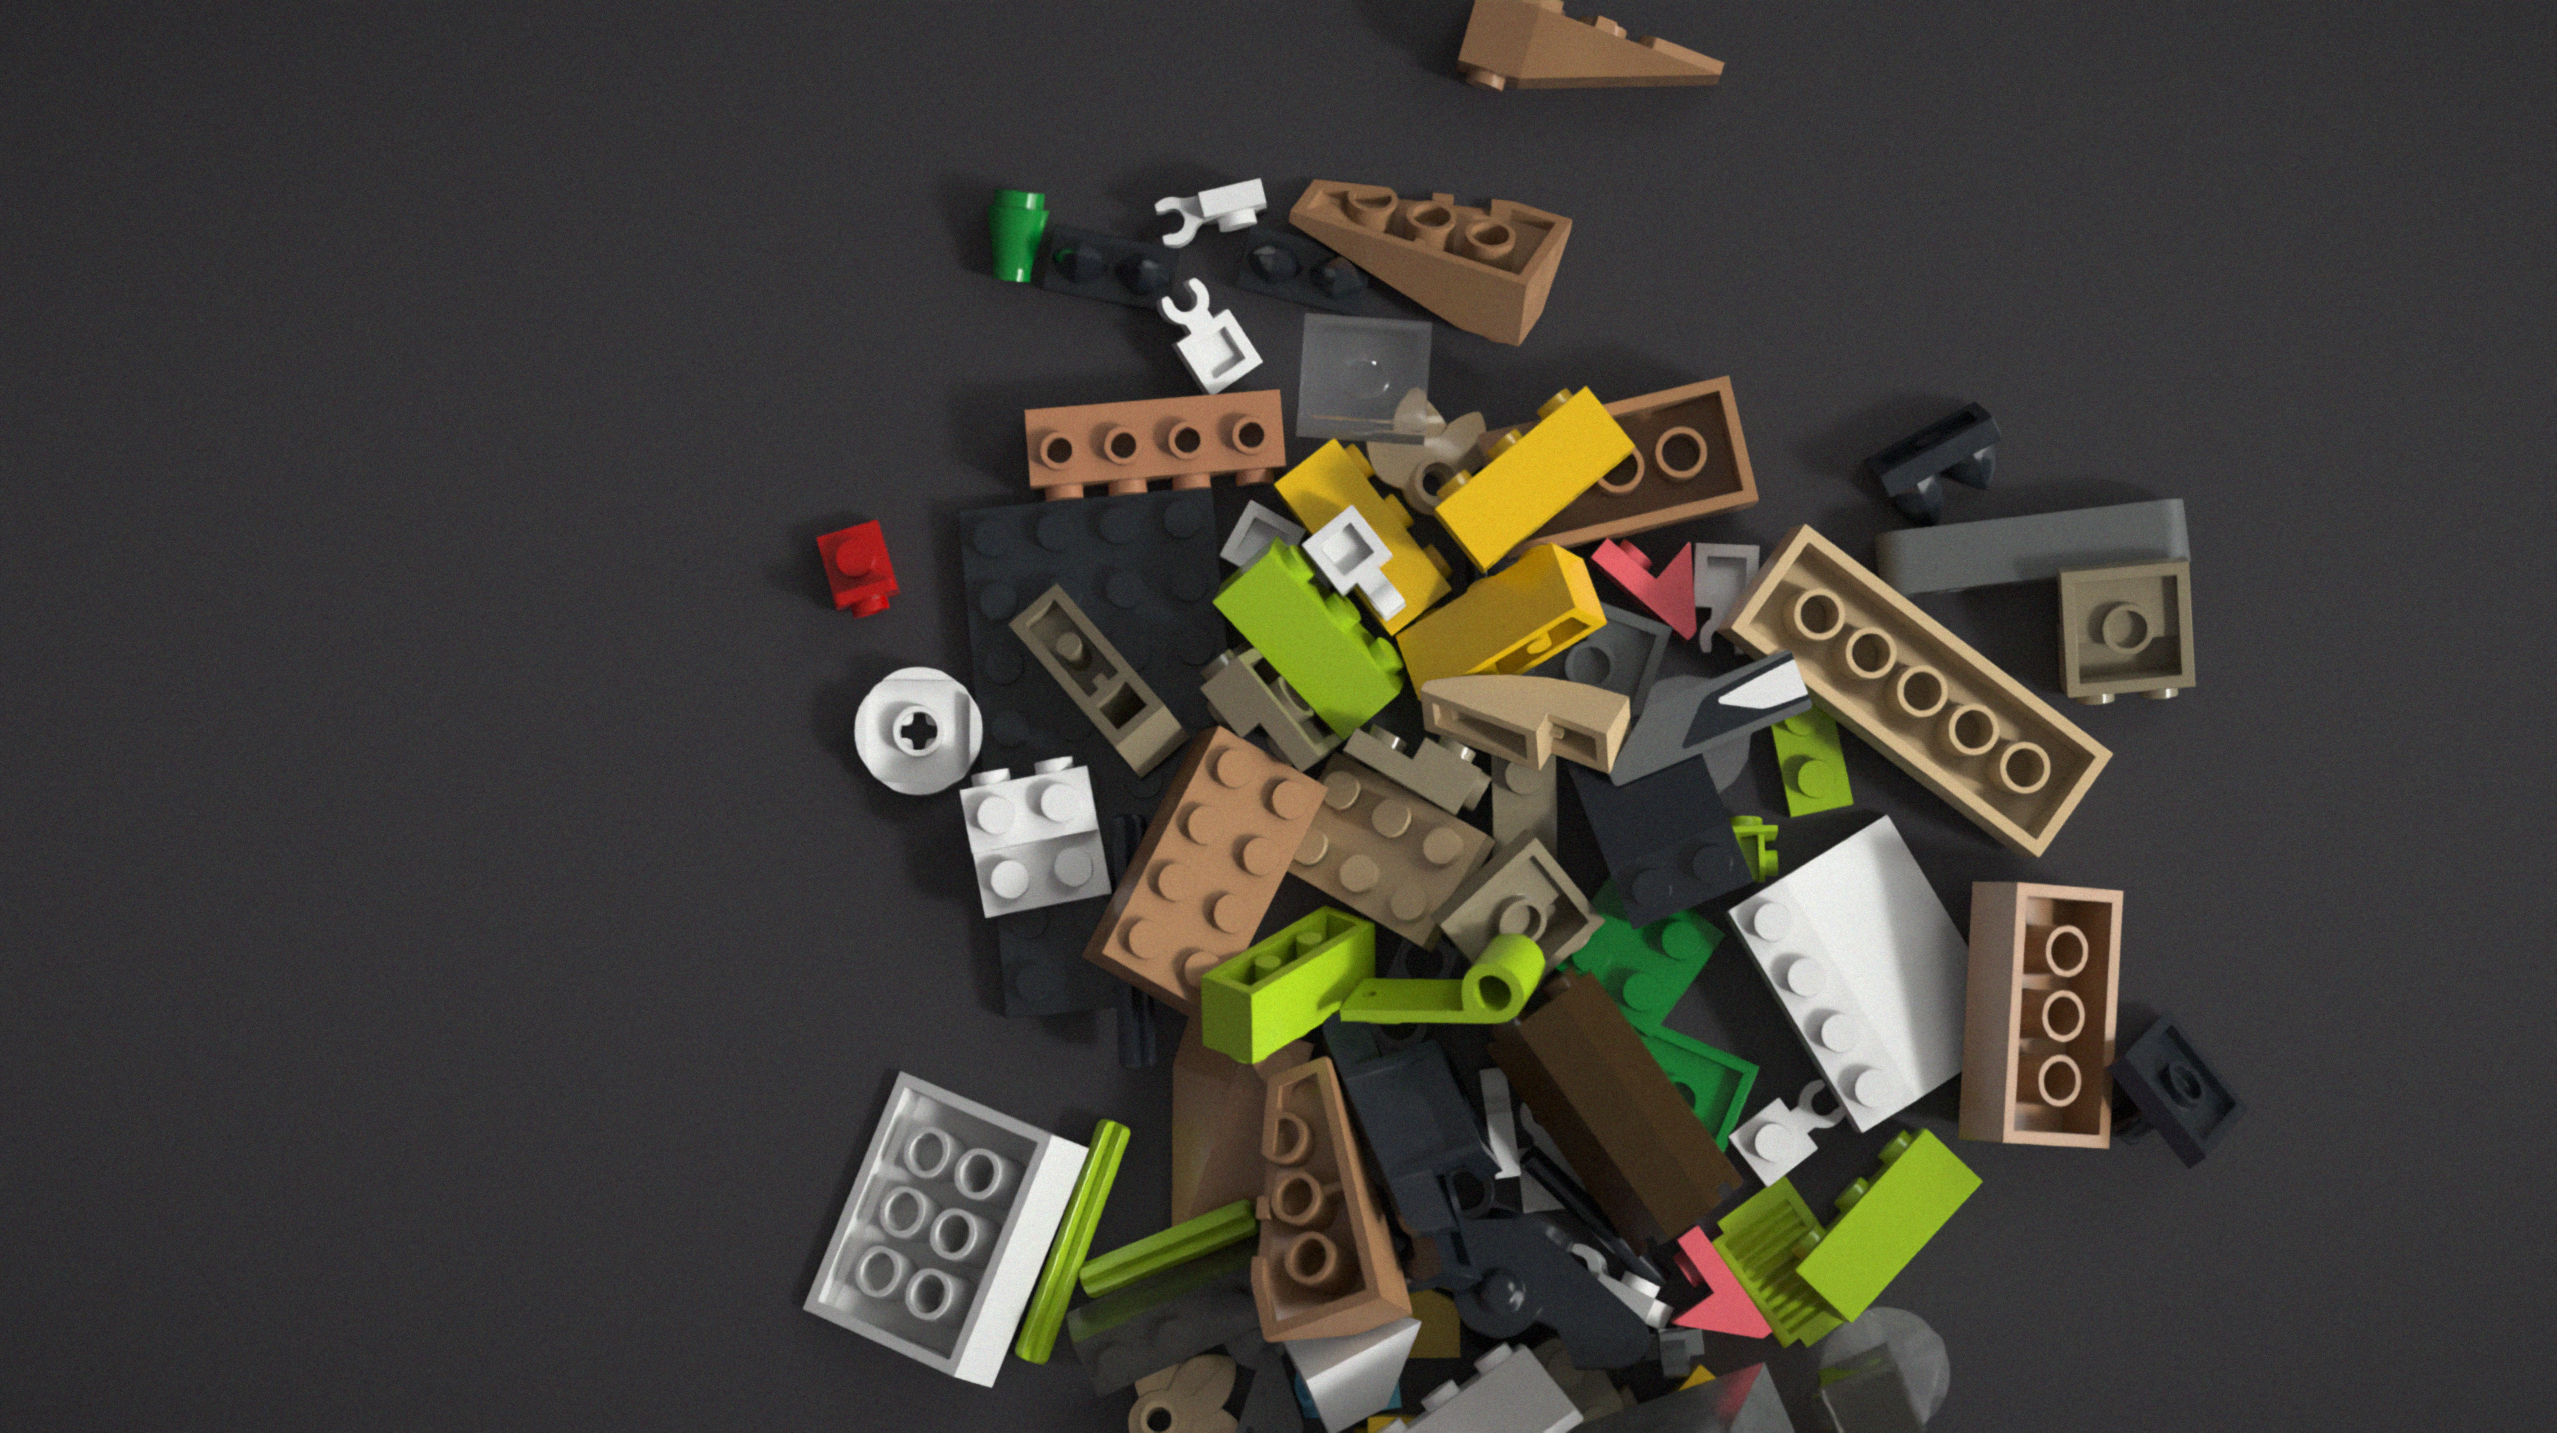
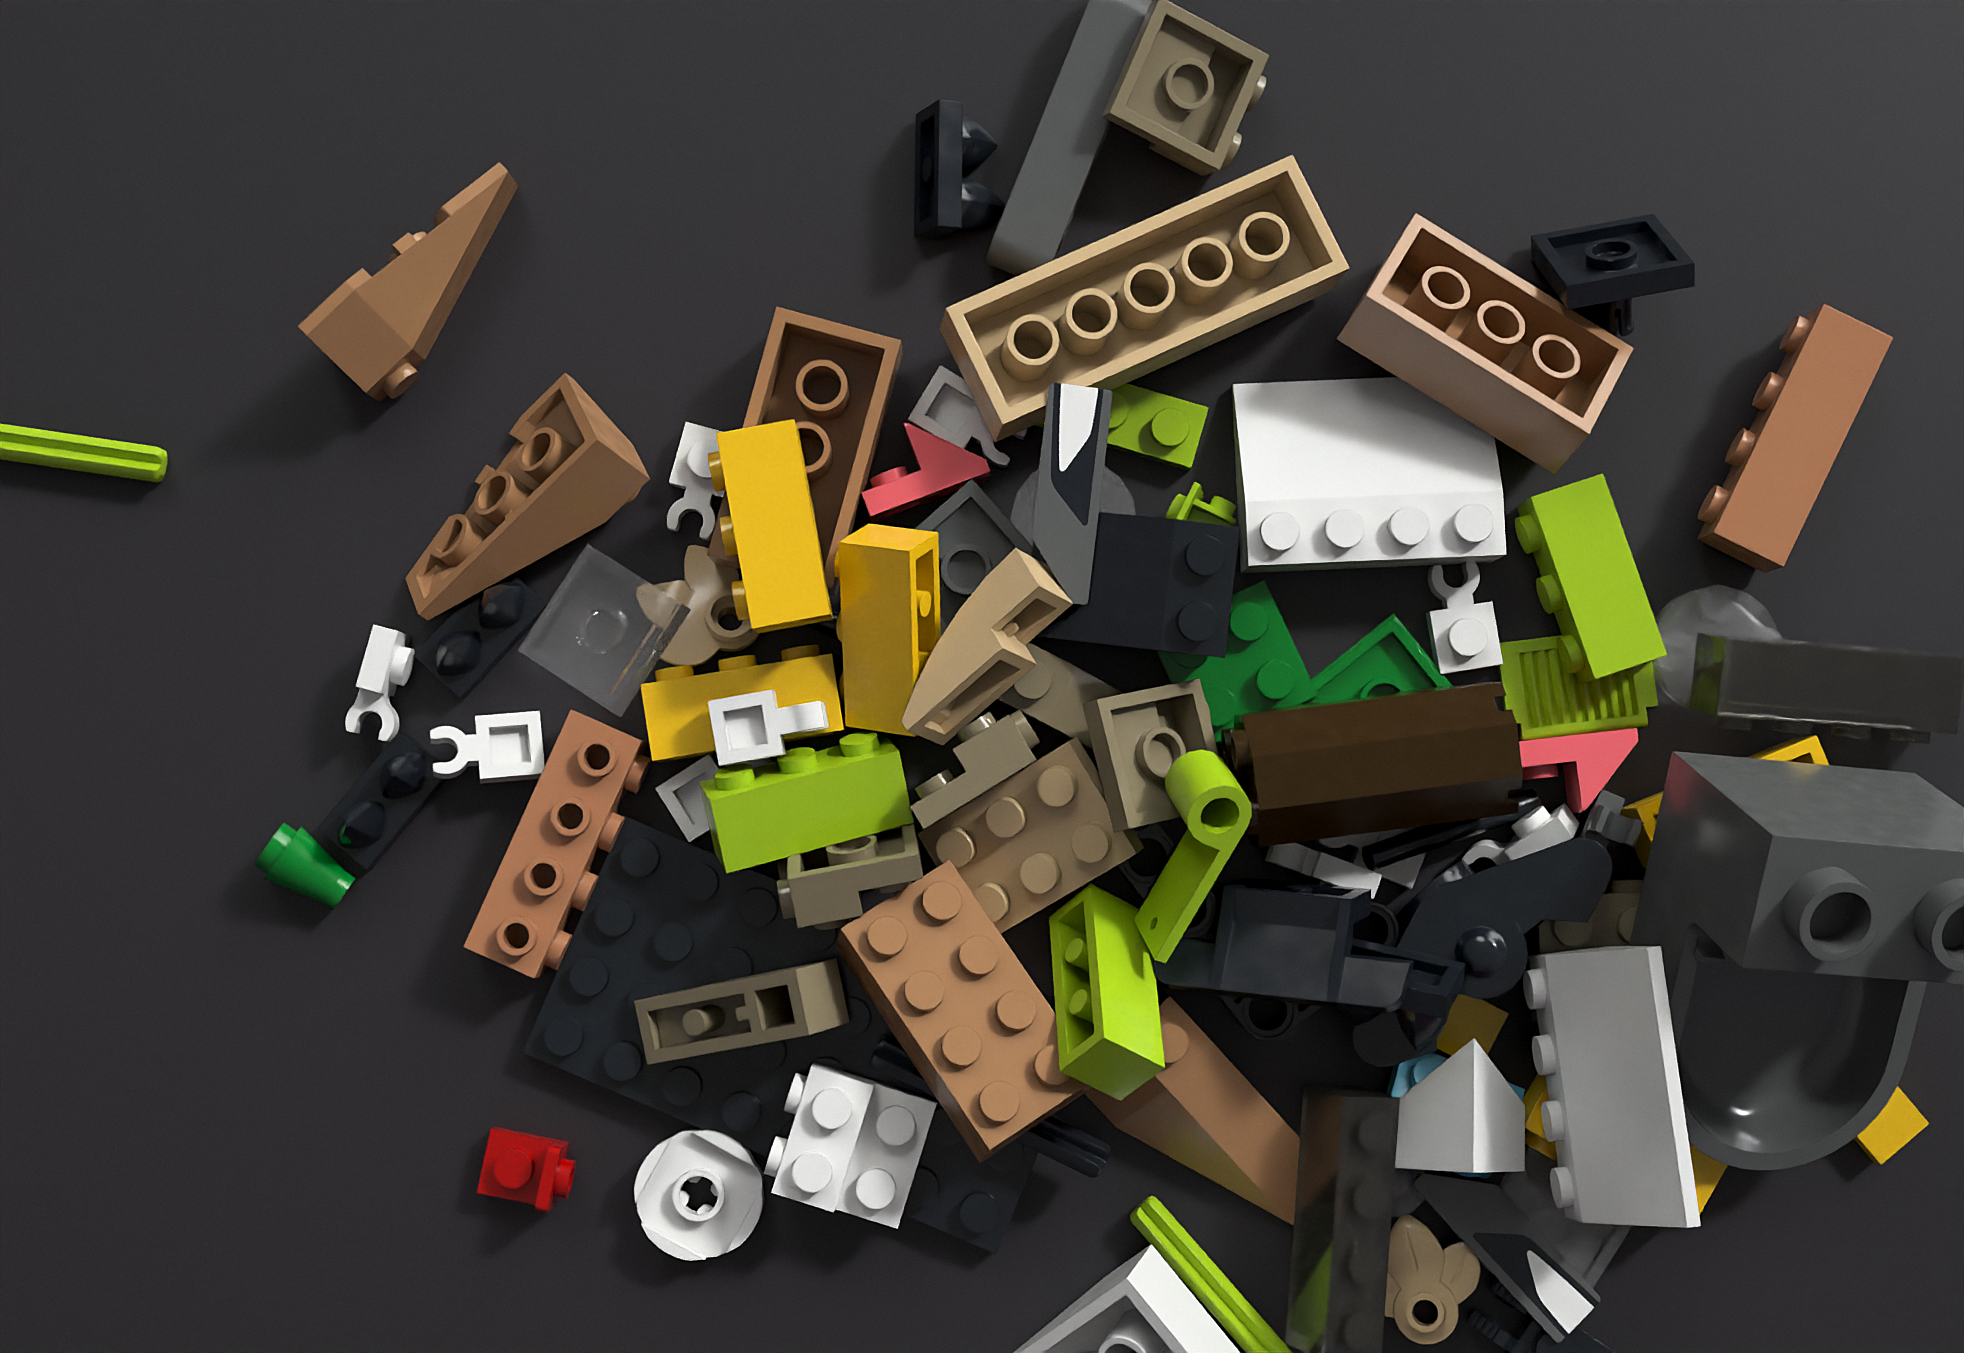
camera: 70 degrees left, 0 degrees up
(1169, 1248) = (1278, 1220): lime axle -> none
(1323, 1234) = (1349, 1082): medium nougat wedge -> none
(1544, 381) = (693, 473): none -> white plate
(2111, 1336) = (1793, 438): none -> nougat brick

